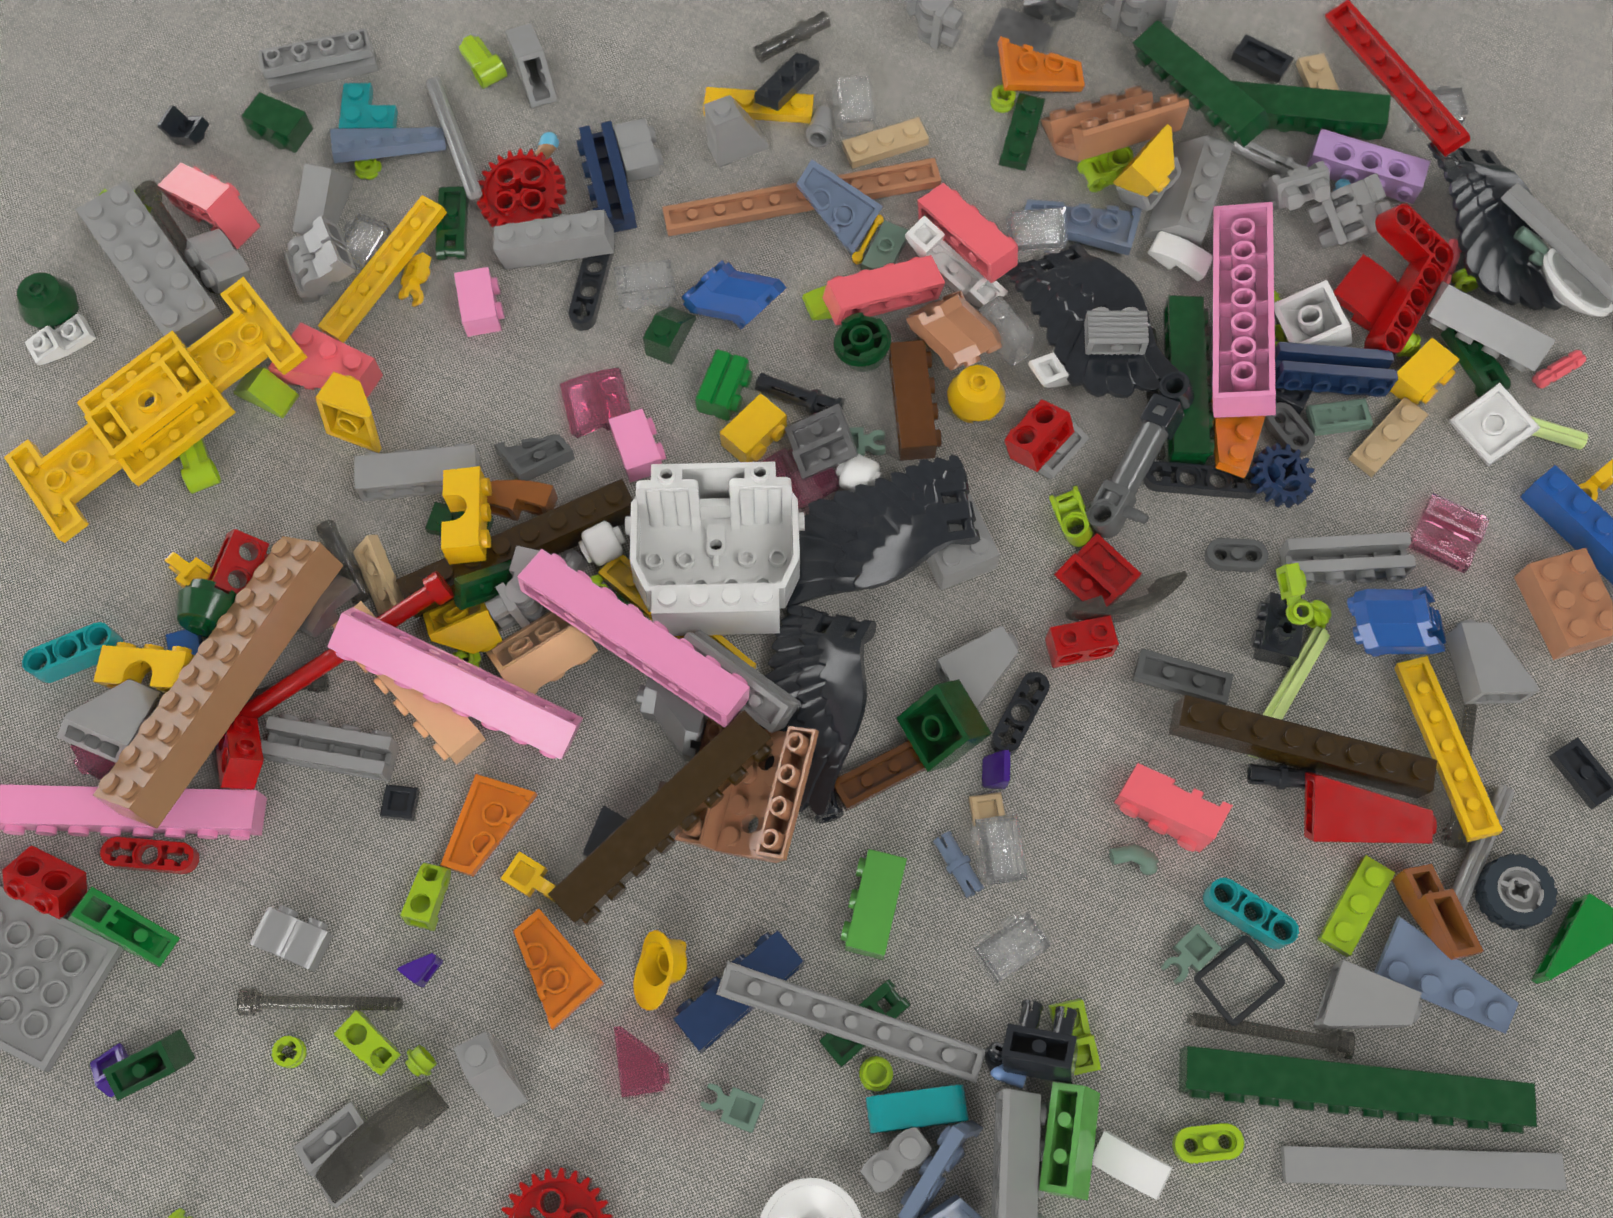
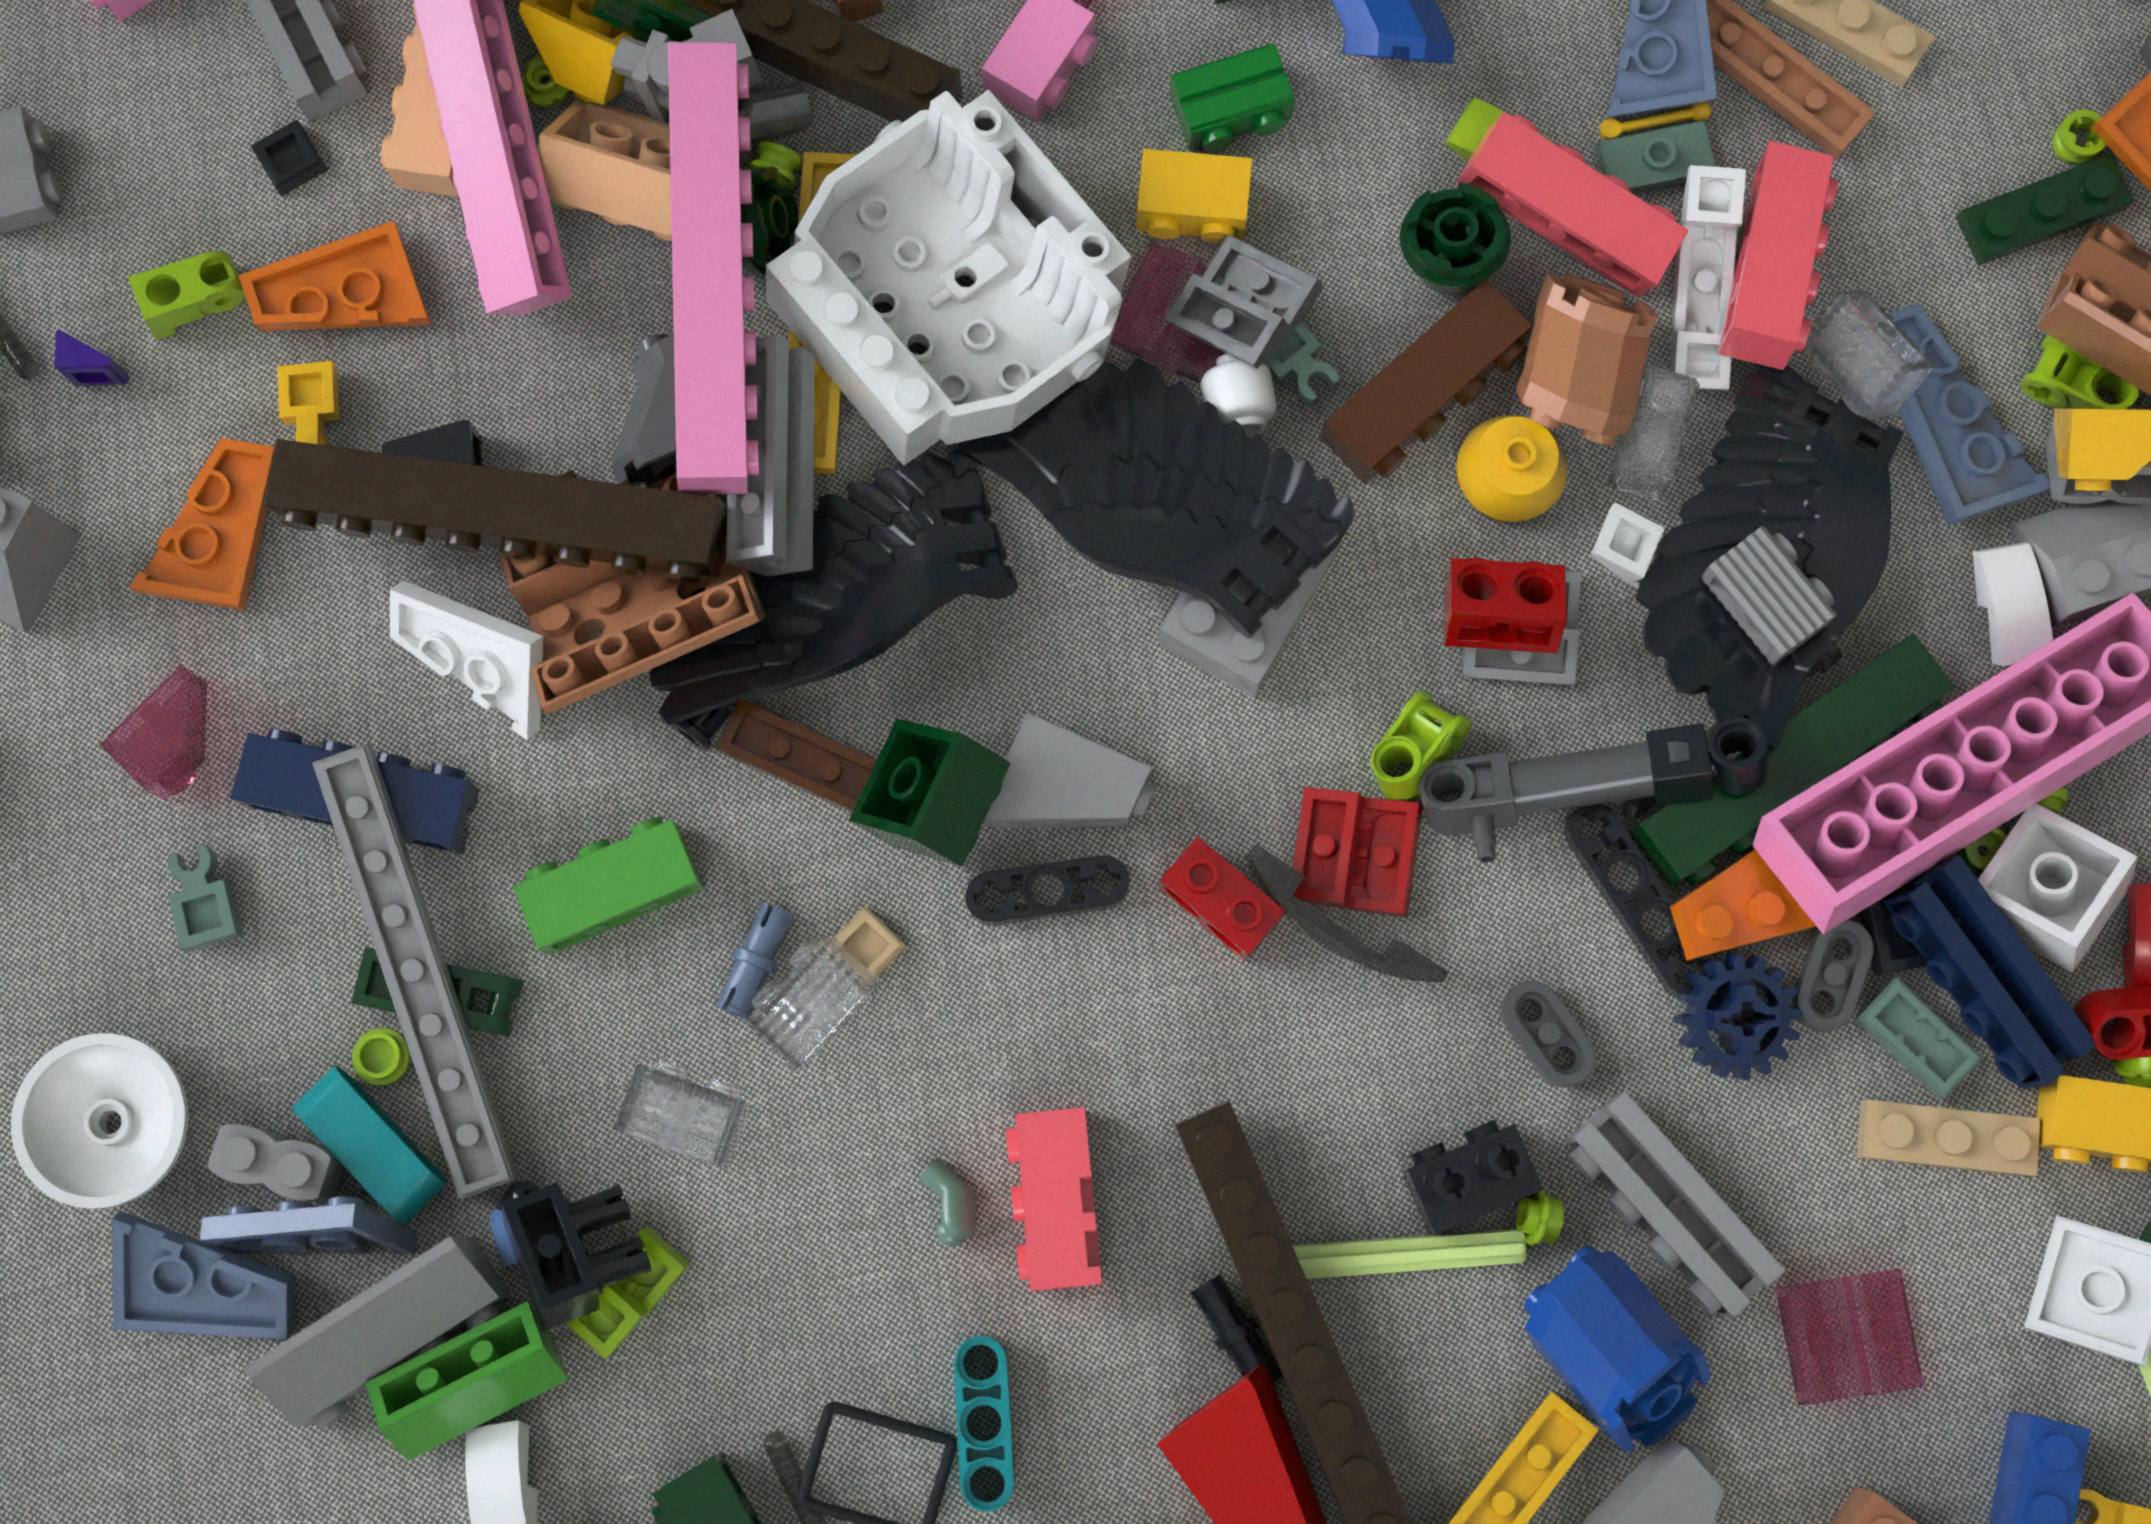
camera: 55 degrees right, 10 degrees up
(602, 543) = (844, 120): white head -> none
(659, 966) = (310, 666): yellow piece -> none
(716, 882) = (475, 648): none -> white wing
(814, 399) = (1309, 240): black pin -> none
(996, 770) = (933, 917): dark purple slope -> none
(1182, 677) = (1282, 1086): dark grey plate -> none
(1194, 951) = (872, 1379): sand green plate -> none
(1292, 585) = (1521, 1141): lime plate -> none

